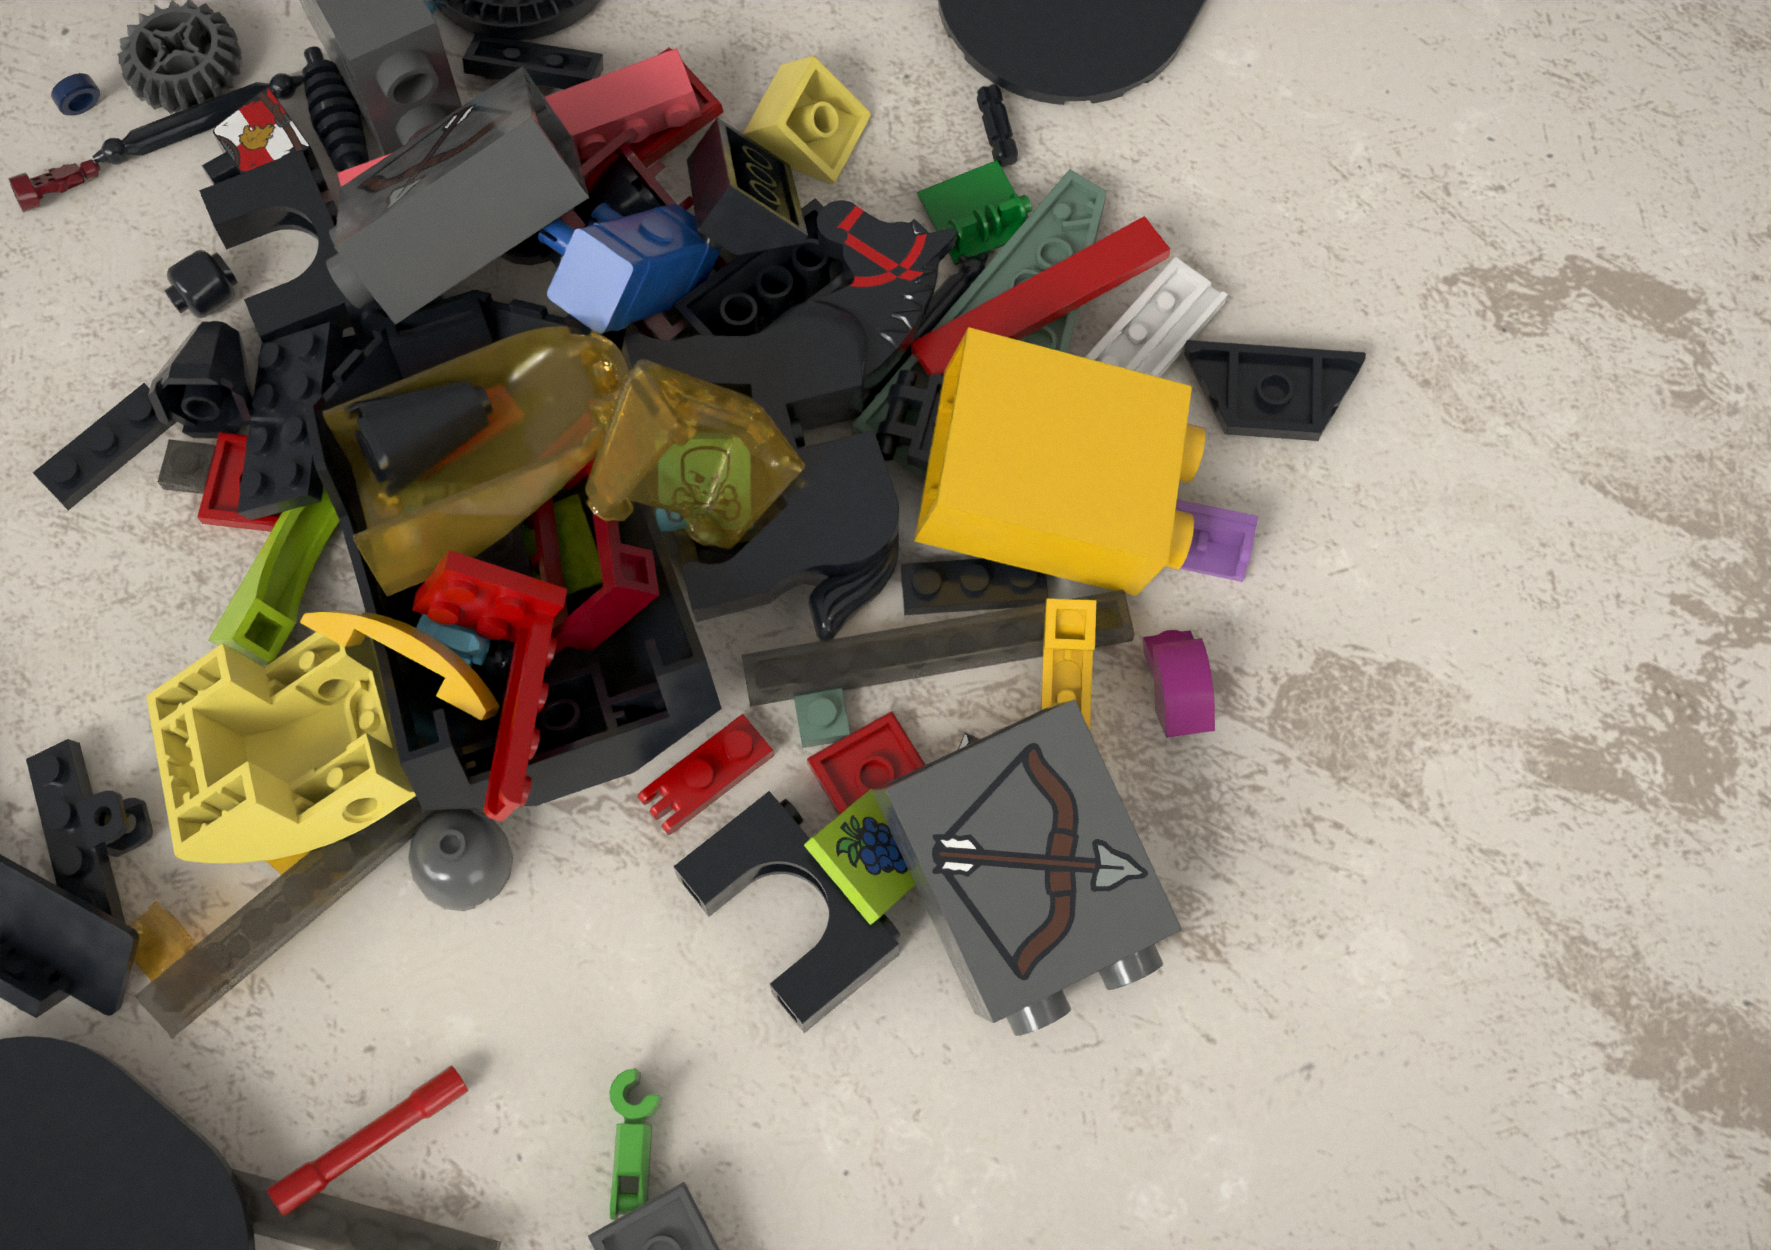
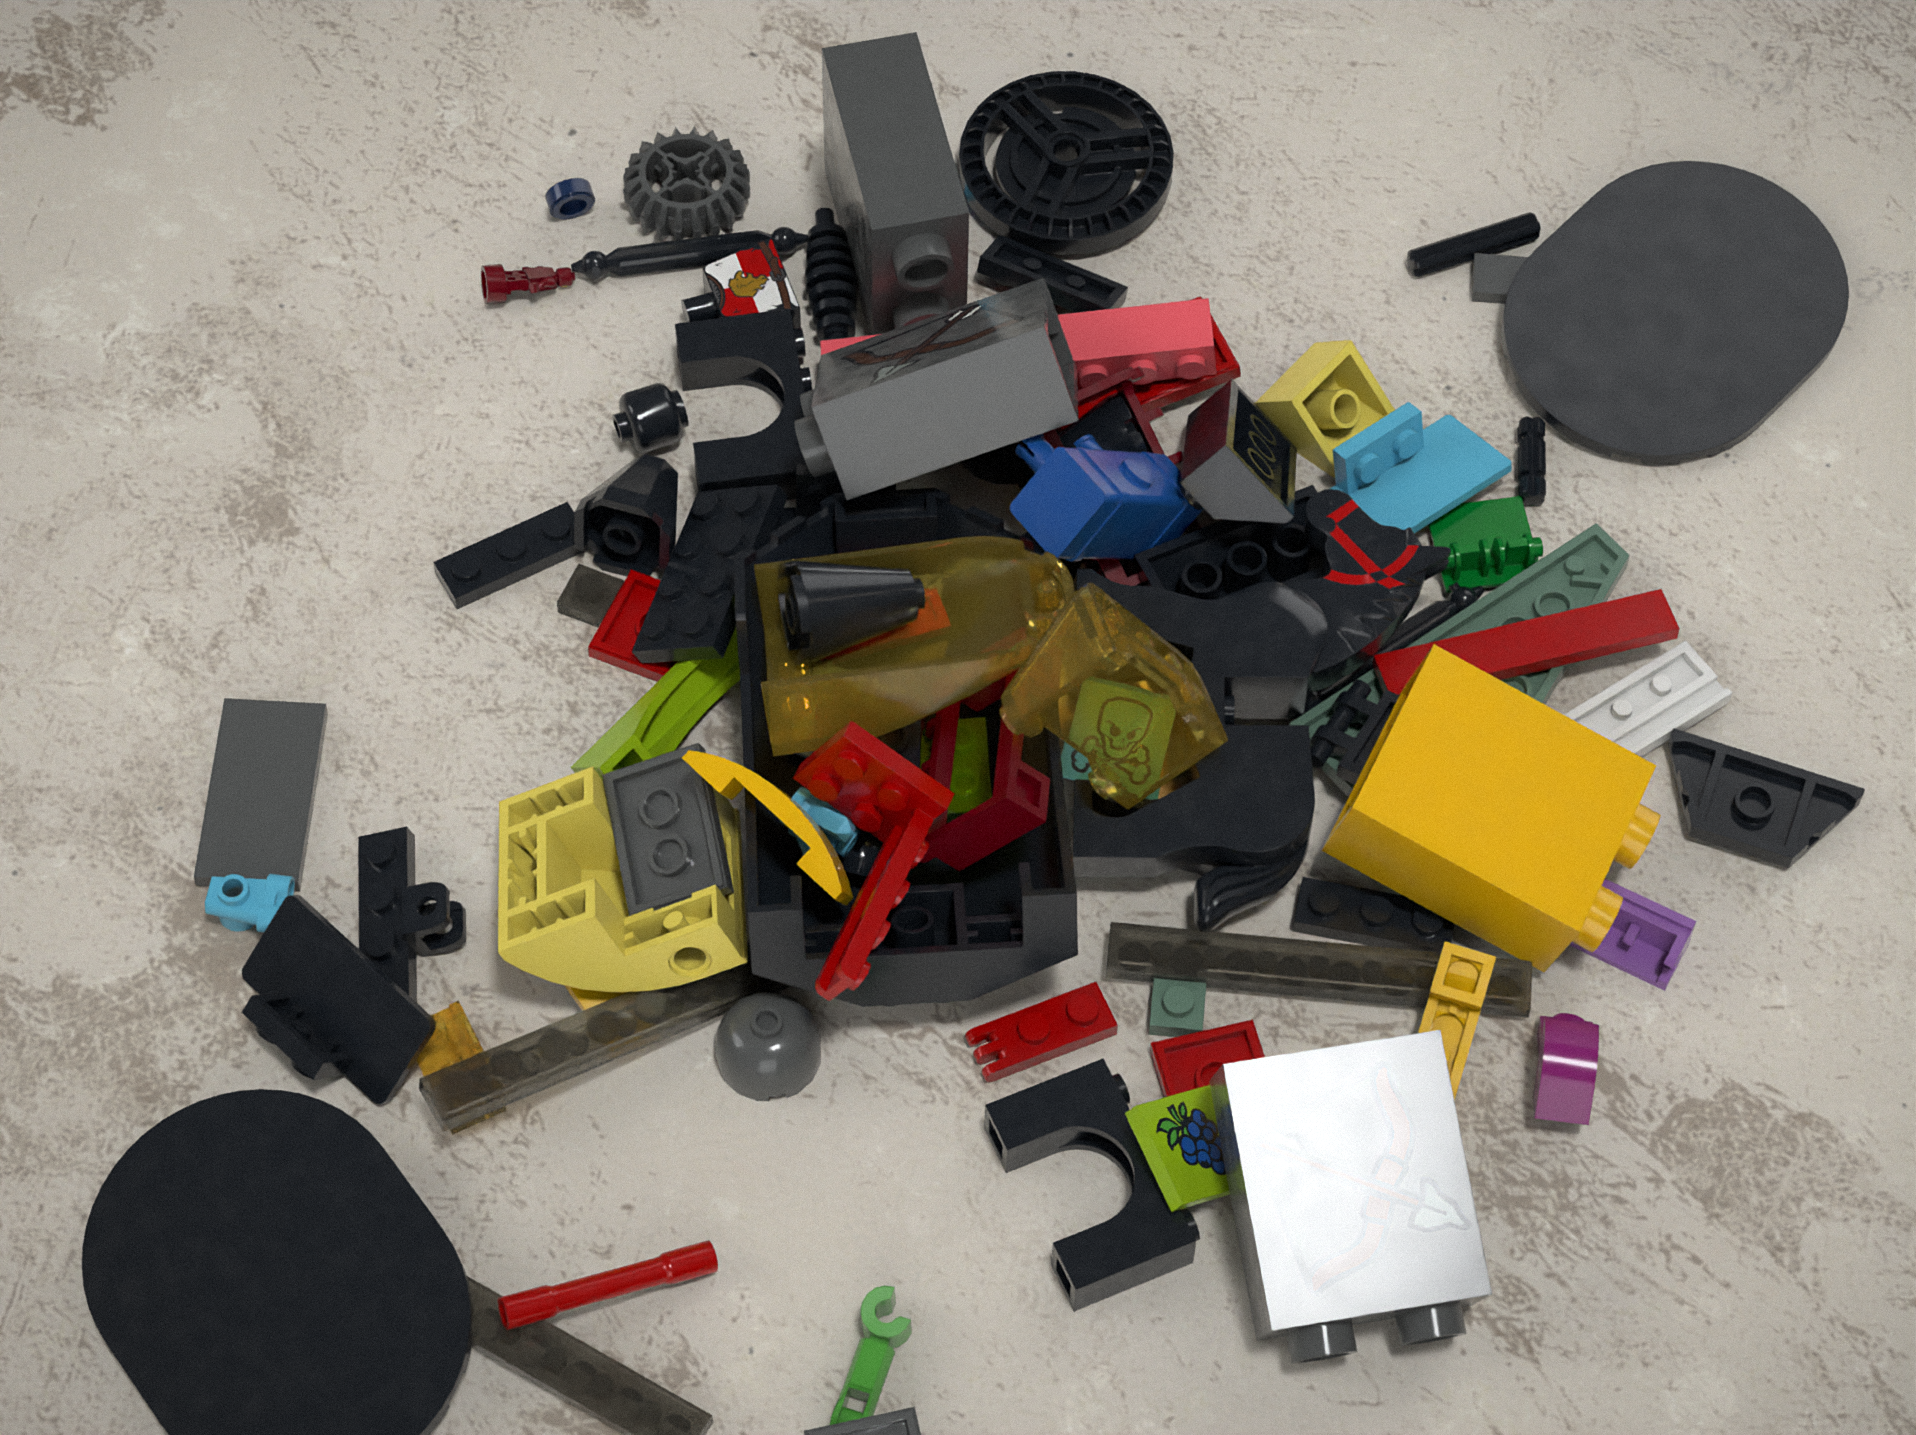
camera: 15 degrees right, 10 degrees down
(309, 689) = (666, 831): none -> dark grey tile
(898, 163) = (1414, 473): none -> medium azure bracket

